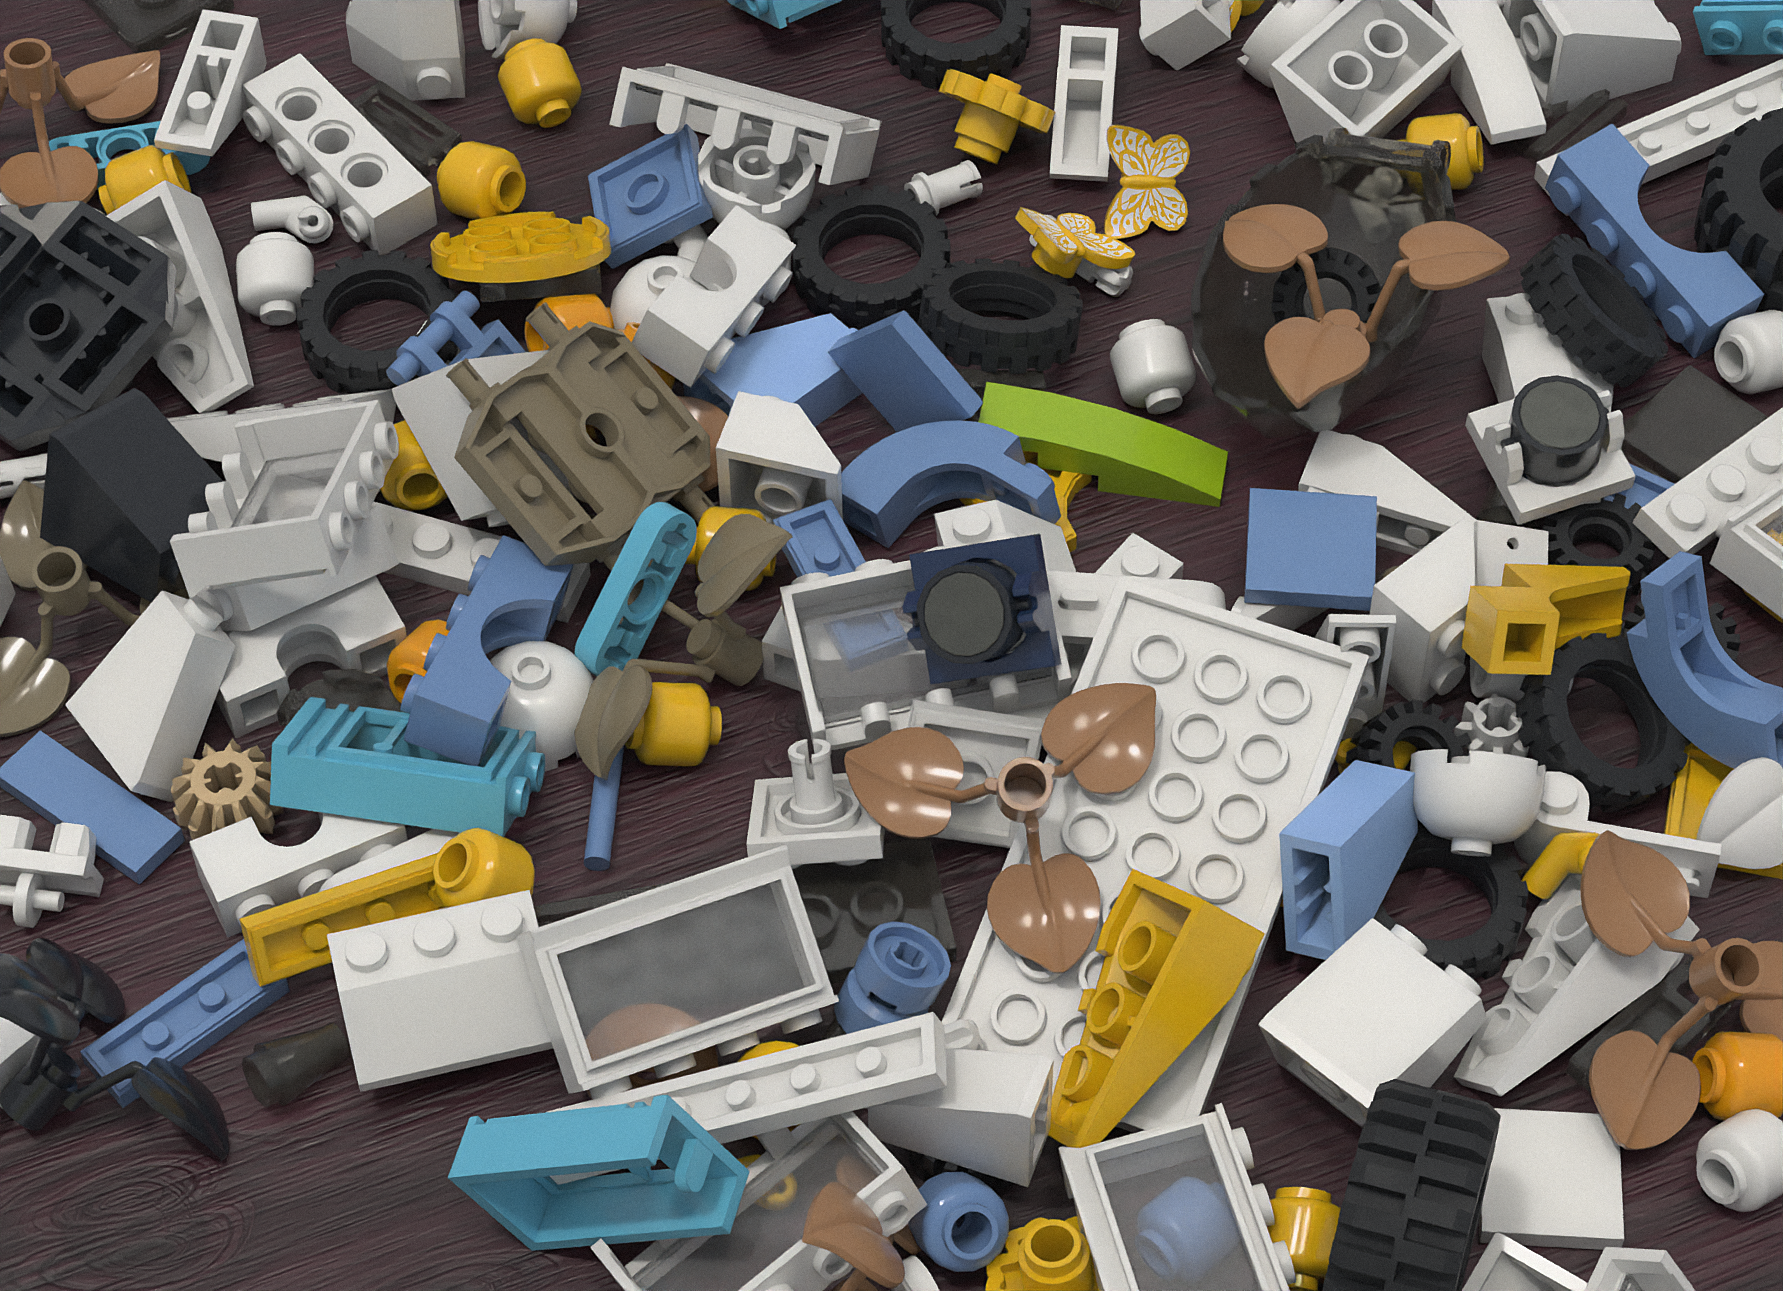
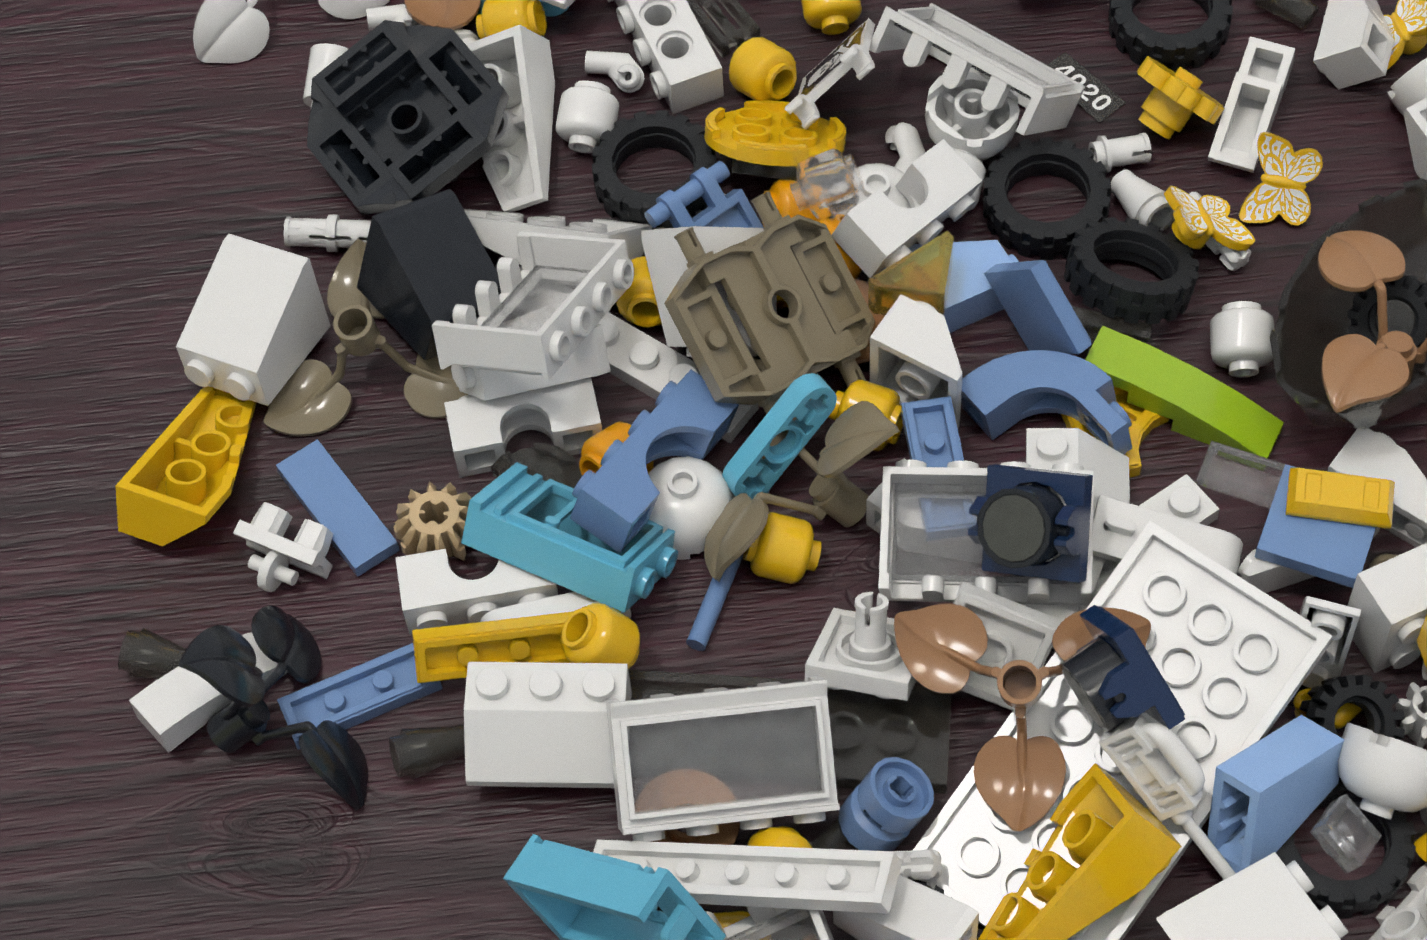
camera: 20 degrees right, 5 degrees up
(156, 692) = (403, 433): white slope -> none
(593, 128) = (849, 54): none -> white flag
(607, 286) = (827, 183): none -> clear head
(650, 195) = (887, 110): medium blue tile -> none
(752, 365) = (919, 276): none -> clear yellow slope
(895, 135) = (1096, 97): none -> clear smoke sticker
(988, 235) = (1142, 200): none -> white cone
(1140, 758) = (1117, 675): none -> dark blue piece
(1197, 521) = (1240, 474): none -> clear tile
(1220, 872) = (1166, 788): none -> white piece
(1325, 509) = (1340, 497): none -> yellow tile
(1443, 884) = (1346, 834): none -> clear plate

